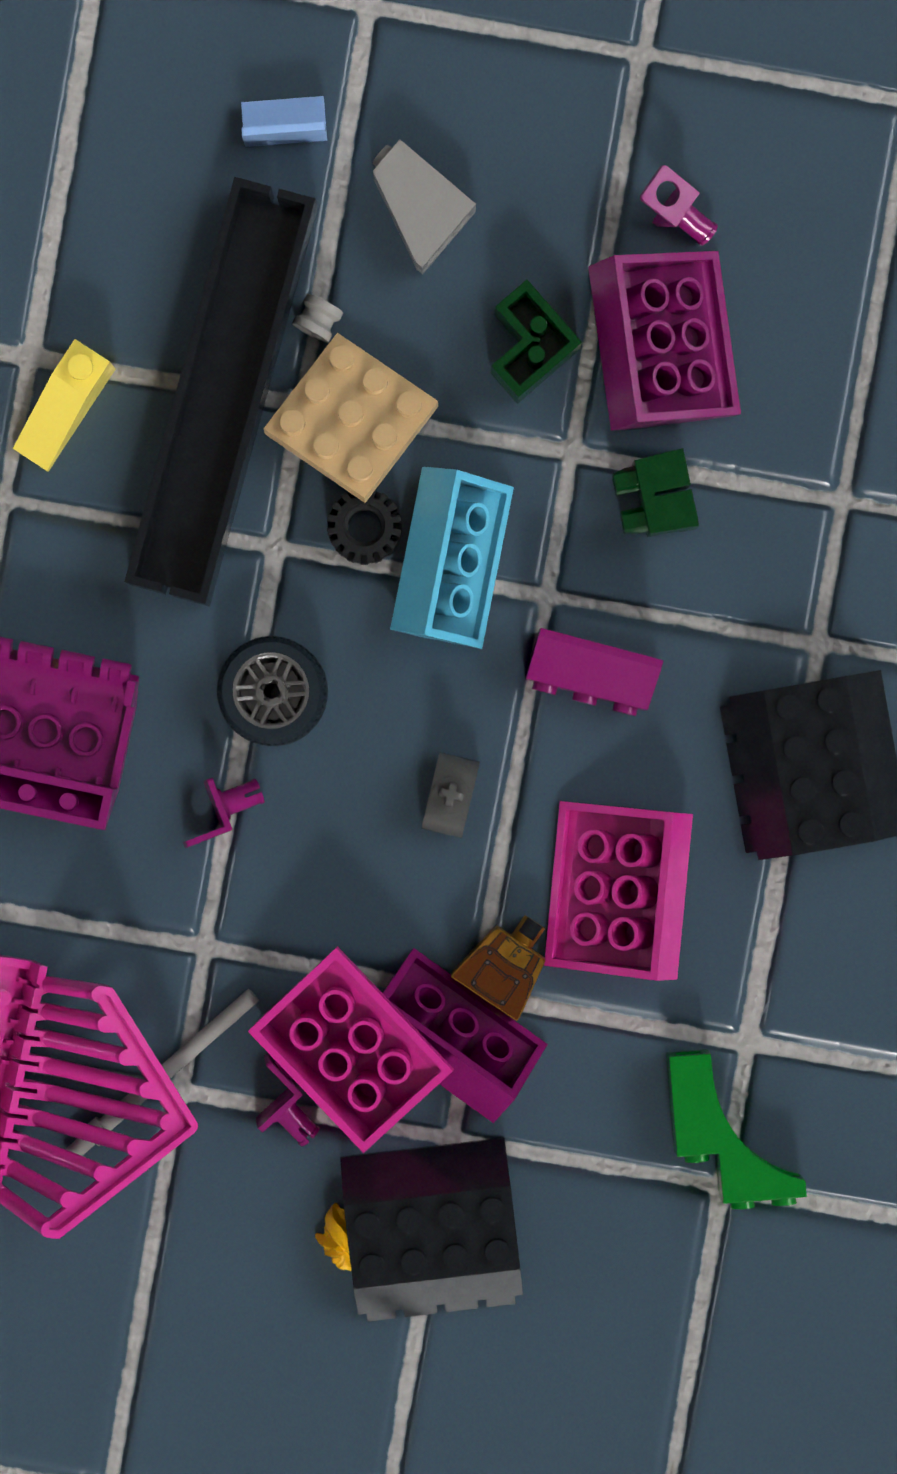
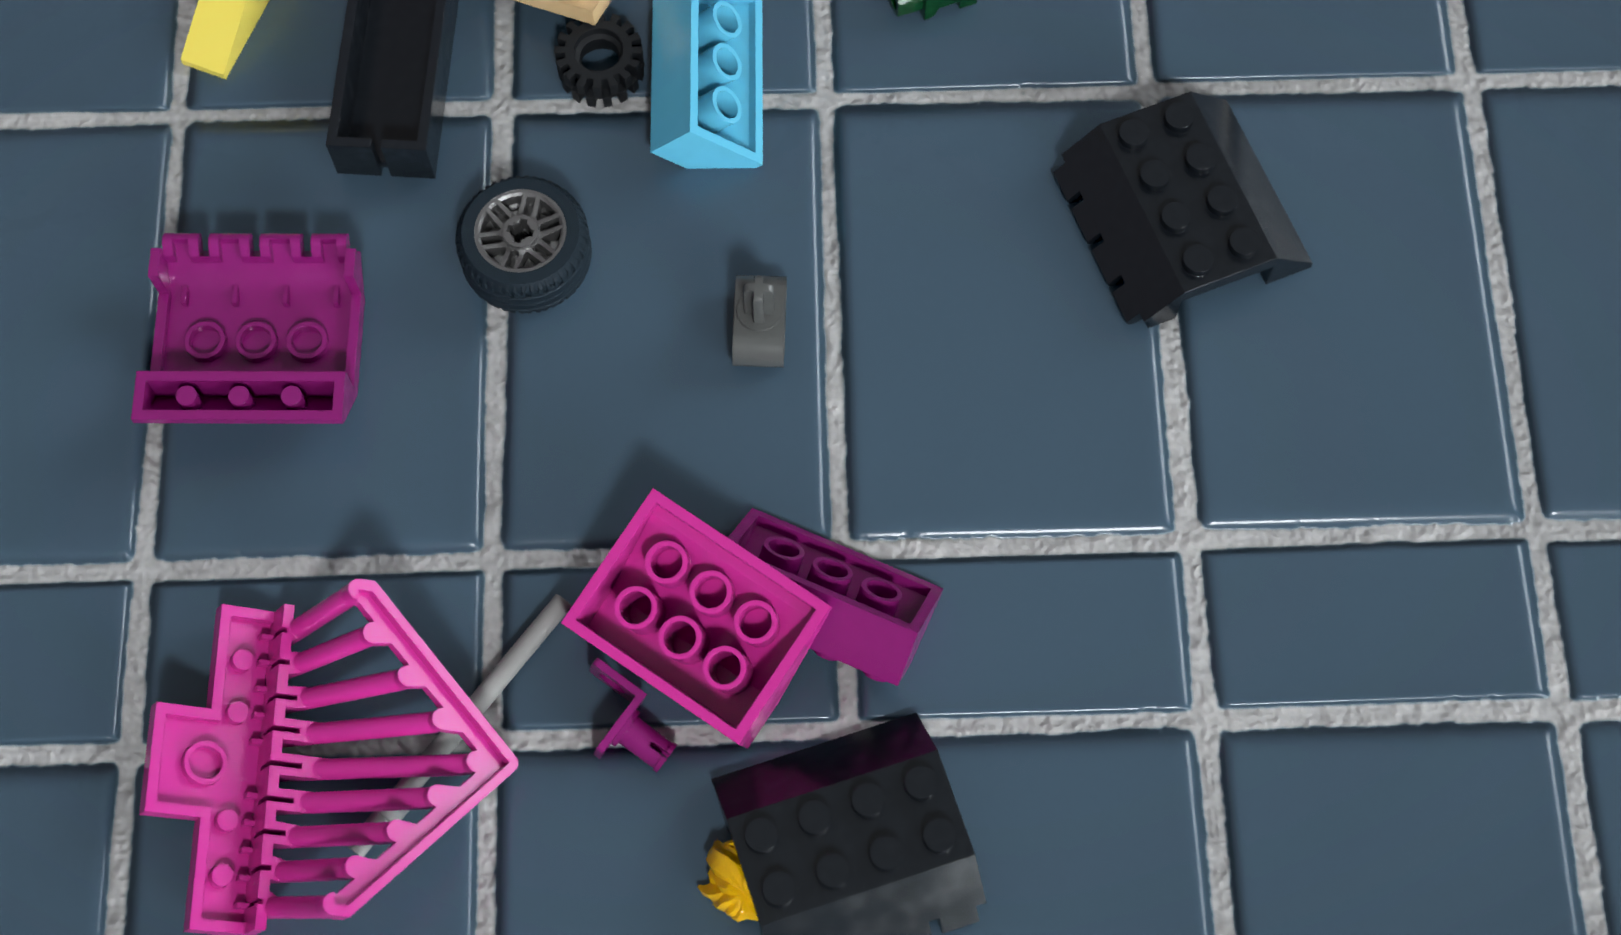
camera: 20 degrees left, 20 degrees down
(226, 804) = (486, 385): magenta bracket -> none
(504, 967) = (866, 501): torso -> none
(593, 671) = (897, 143): magenta slope -> none
(618, 890) = (987, 386): dark pink slope -> none
(703, 1130) = (1164, 642): green arch -> none

